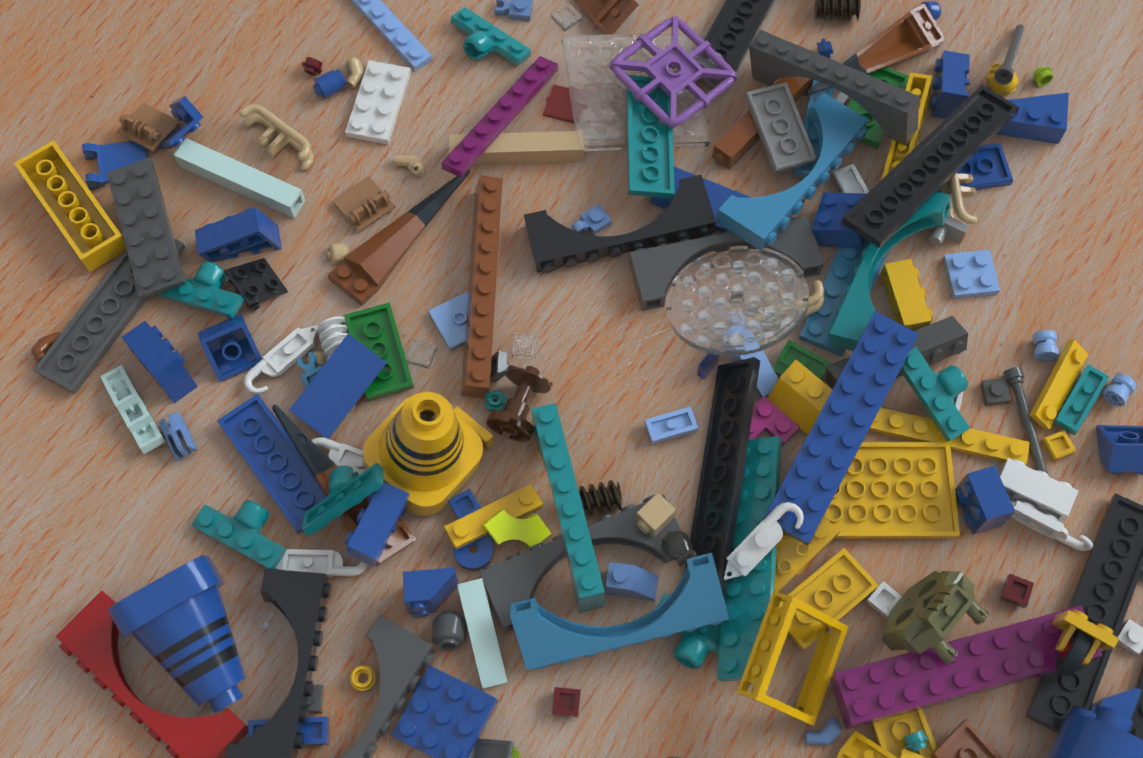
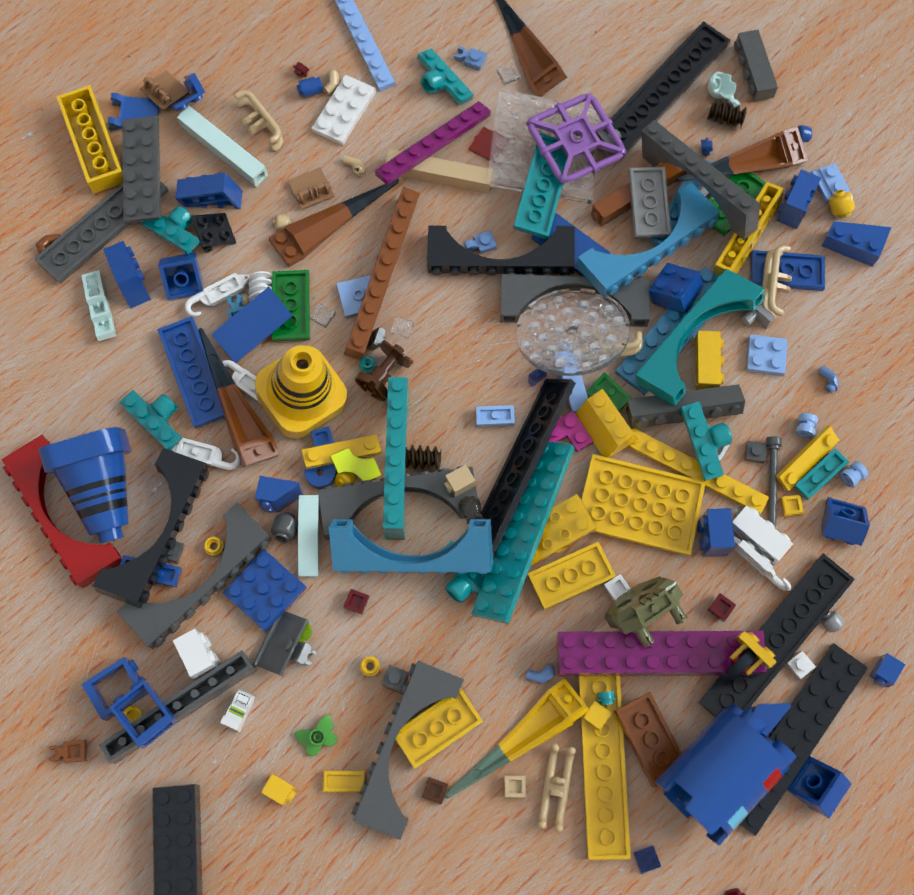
camera: 15 degrees right, 5 degrees up
(177, 436) = (126, 333): medium blue arm -> none
(345, 491) = (233, 406): teal plate -> none
(376, 524) = (250, 435): blue wedge -> none
(486, 437) = (351, 390): yellow tile -> none
(505, 549) = (343, 478): none -> yellow piece
(631, 582) = (429, 526): medium blue slope -> none
(760, 541) = (531, 520): white plate -> none
(768, 649) = (511, 599): yellow window -> none
(843, 424) = (620, 449): blue plate -> none
(850, 180) = (693, 259): white tile -> none
(929, 166) = (756, 261): black plate -> none
(981, 58) = (830, 181): none -> light blue plate
(1005, 72) = (842, 199): dark grey piece -> none
(1042, 76) = (877, 208): lime plate -> none
(1056, 283) = (831, 377): none -> medium blue arm

